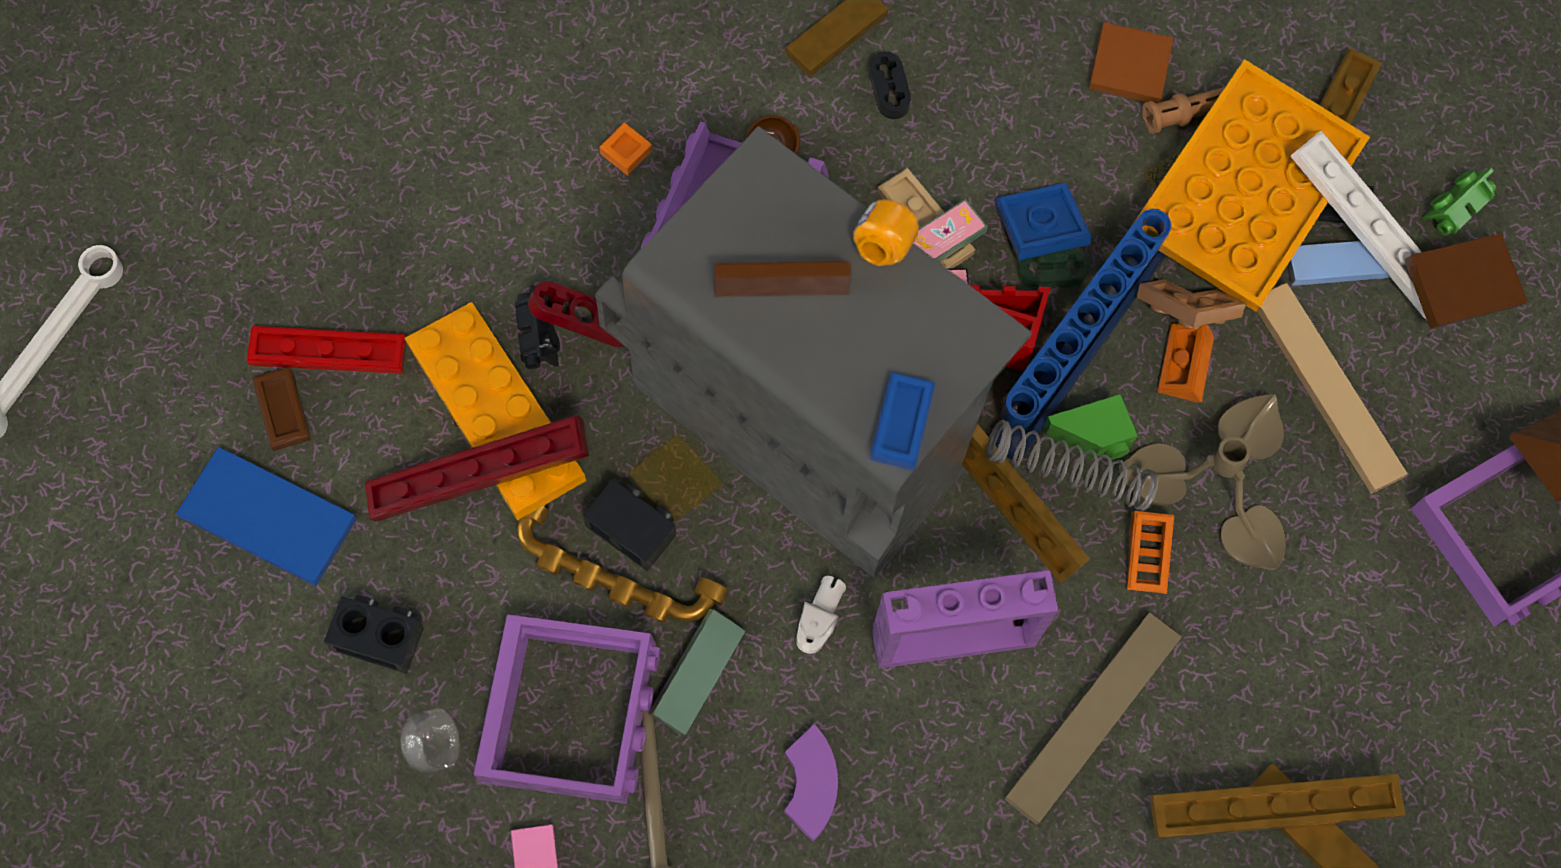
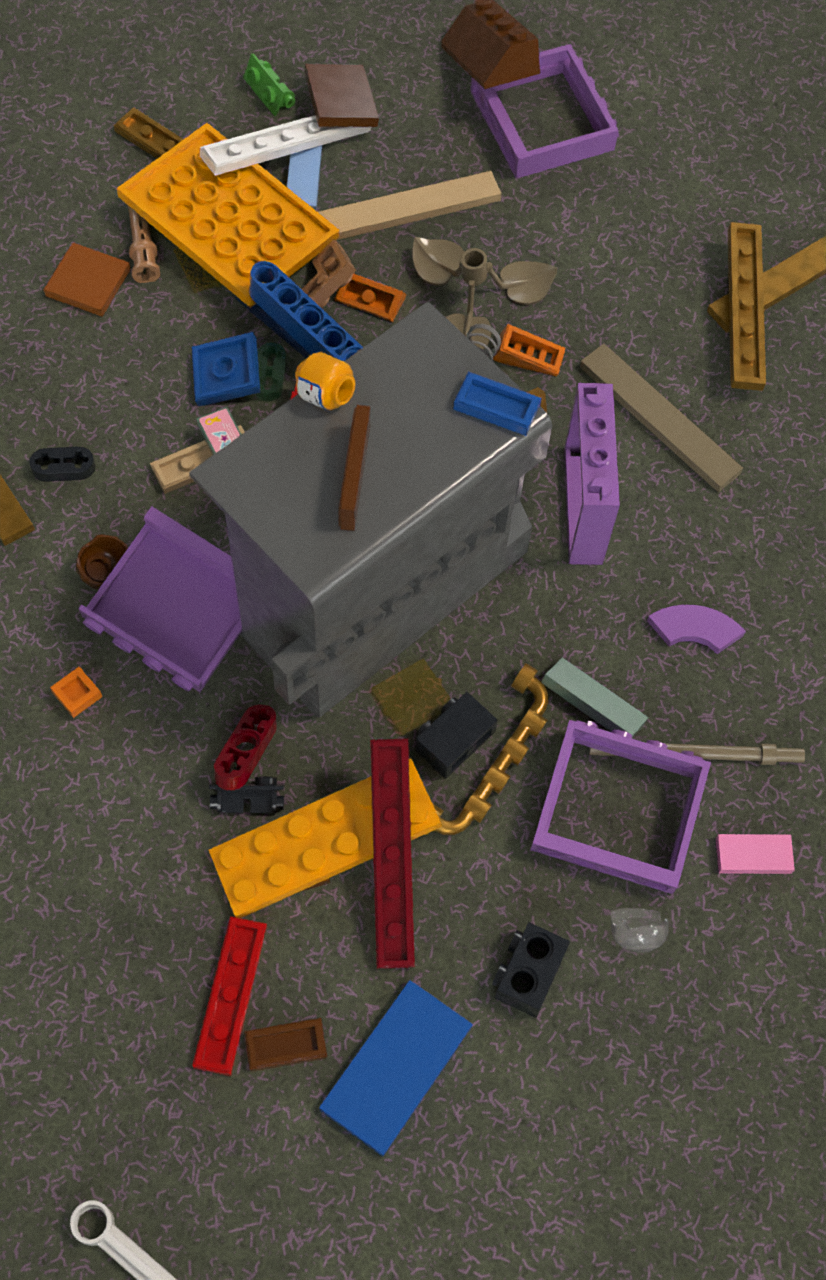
camera: 80 degrees left, 5 degrees down
(818, 618) = (557, 596): white piece -> none

